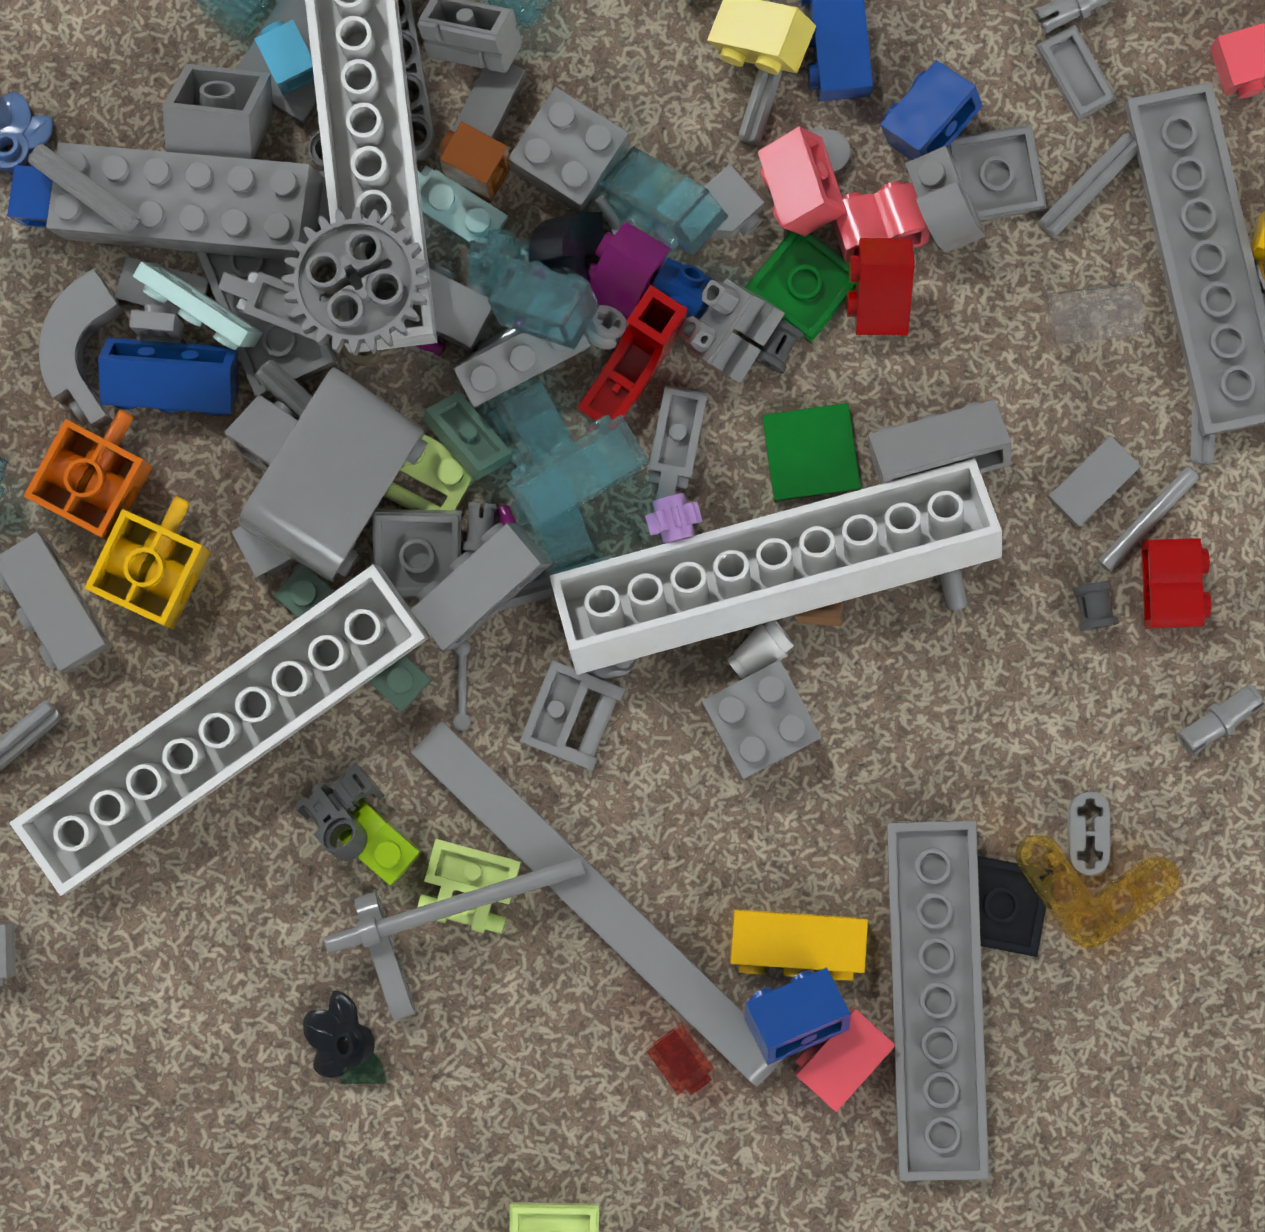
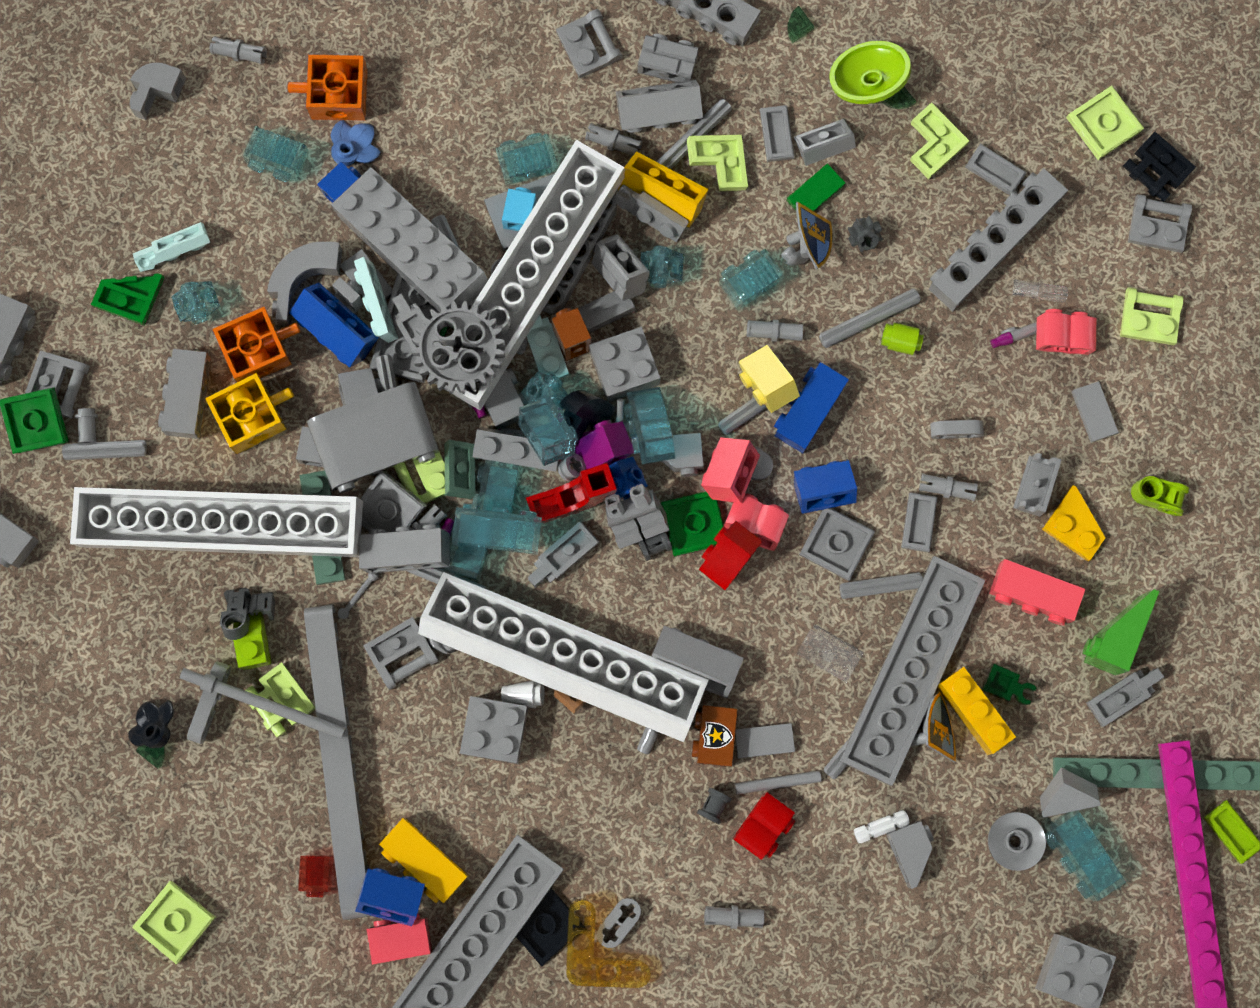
camera: 30 degrees right, 5 degrees down
(84, 189) = (363, 199): light grey axle -> none
(218, 111) = (461, 211): light grey brick -> none
(673, 518) = (530, 591): lavender gear -> none
(811, 452) = (629, 612): green tile -> none
(943, 201) = (793, 536): light grey brick -> none
(1033, 521) = (715, 736): none -> dark orange brick

